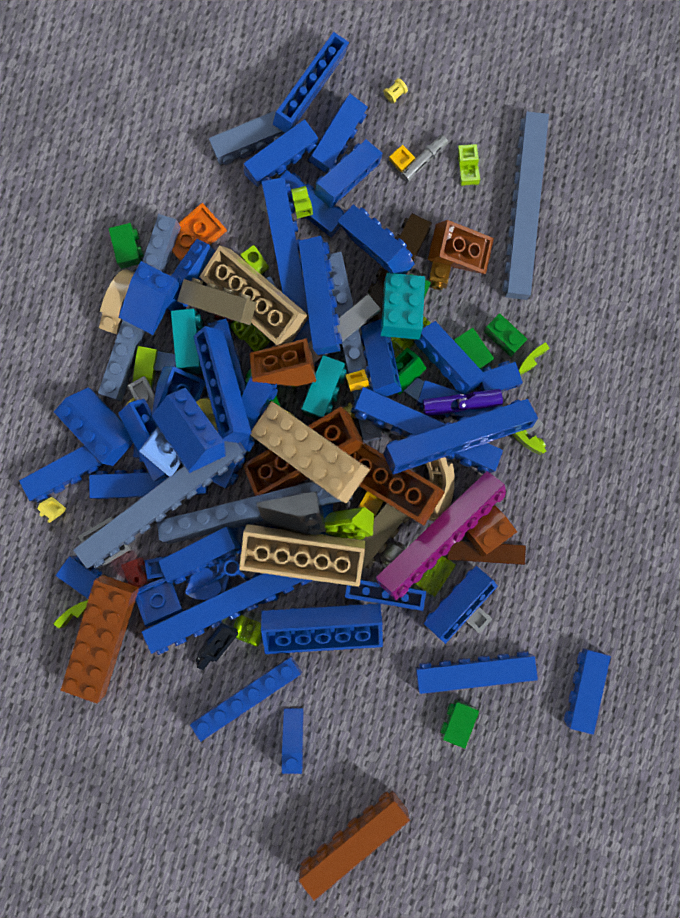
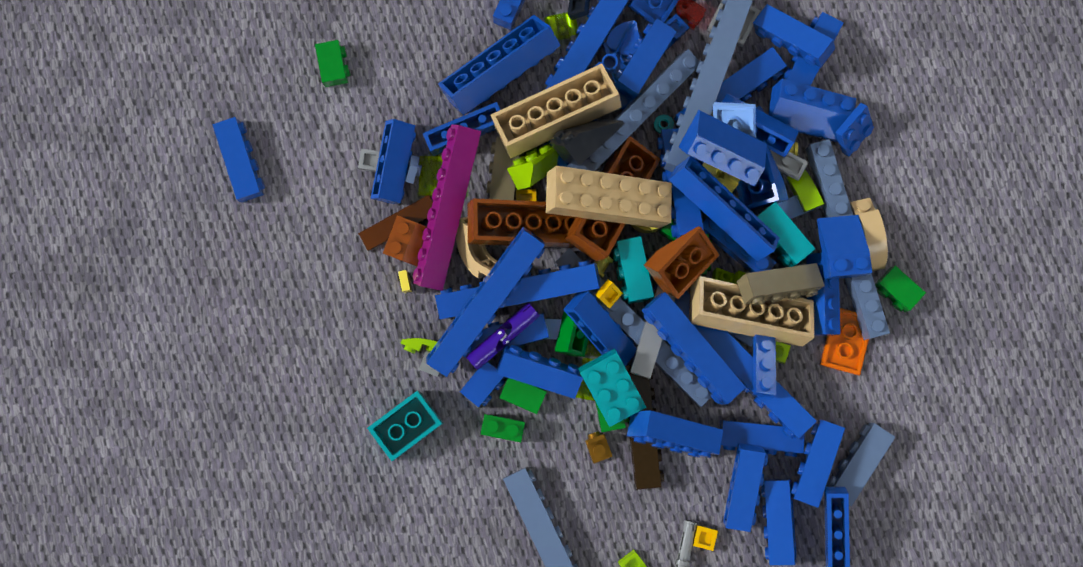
camera: 140 degrees right, 0 degrees up
(51, 509) = (802, 15): light yellow tile -> none
(66, 494) = (793, 36): none -> blue brick
(68, 389) = (854, 130): none -> blue plate
(225, 496) = (657, 123): none -> teal plate
(273, 247) = (764, 366): none -> blue plate
(301, 202) = (768, 429): lime leg -> none
(391, 552) = (480, 168): flat silver head -> none
(447, 587) = (413, 169): none -> sand blue plate
(460, 247) = (595, 485): dark orange slope -> none
(476, 673) = (344, 113): blue brick -> none
(511, 500) = (405, 281): none -> light yellow tile
(529, 363) = (465, 415): lime slope -> none
(581, 384) = (405, 425): none -> teal brick

